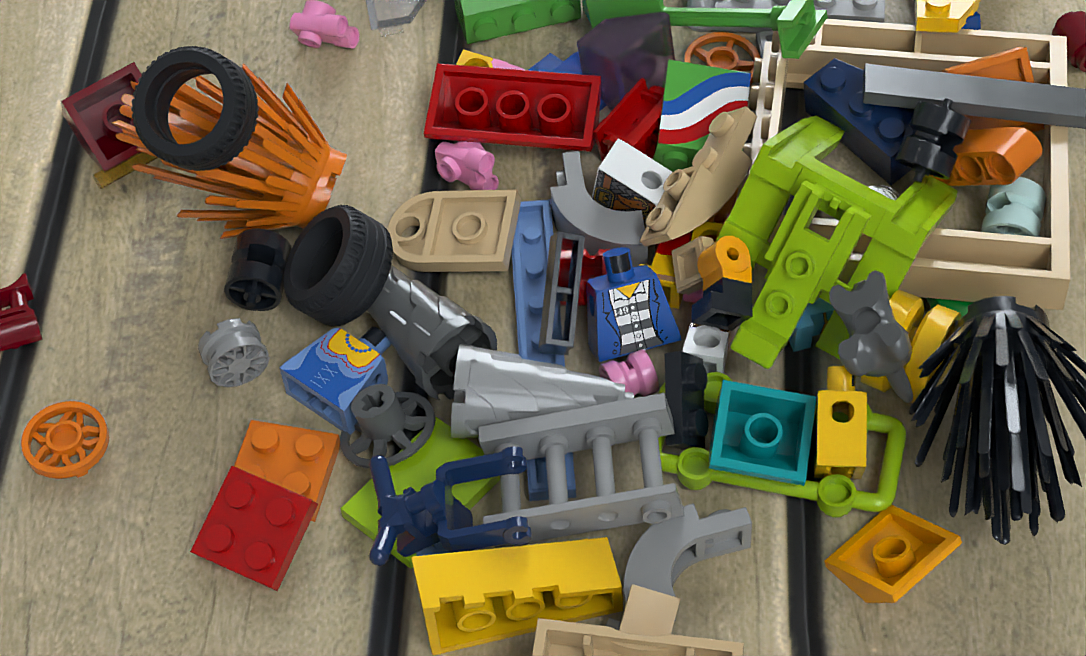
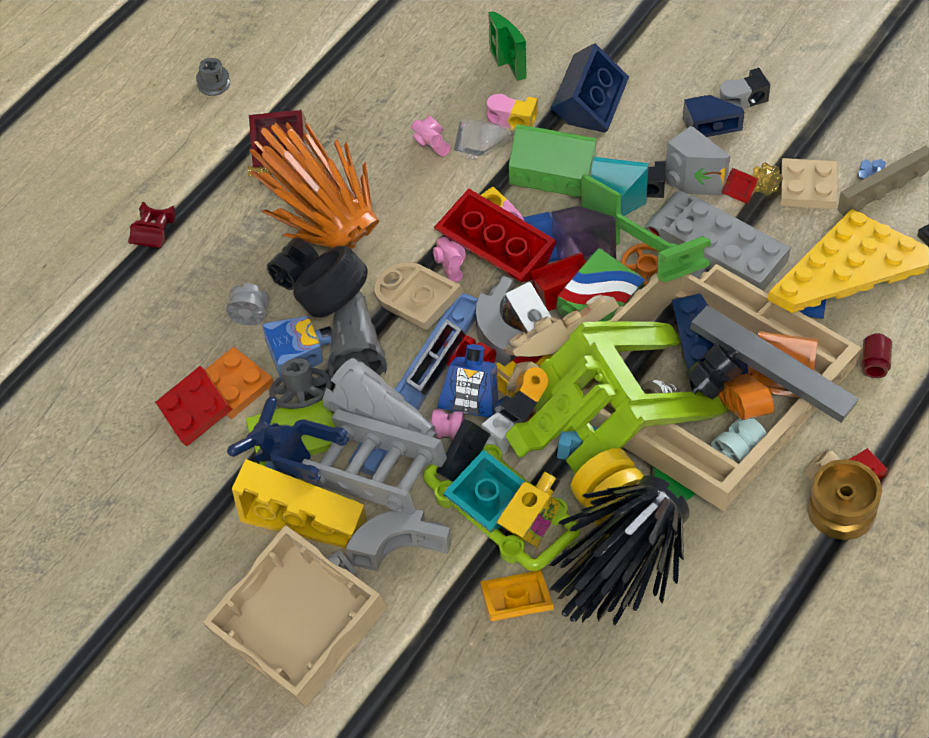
camera: 30 degrees right, 0 degrees up
(65, 440) = (135, 310): orange wheel -> none
(157, 90) = (267, 141): black tyre -> none
(648, 612) = (352, 556): tan tile -> none
(876, 340) = (576, 469): dark grey animal -> none

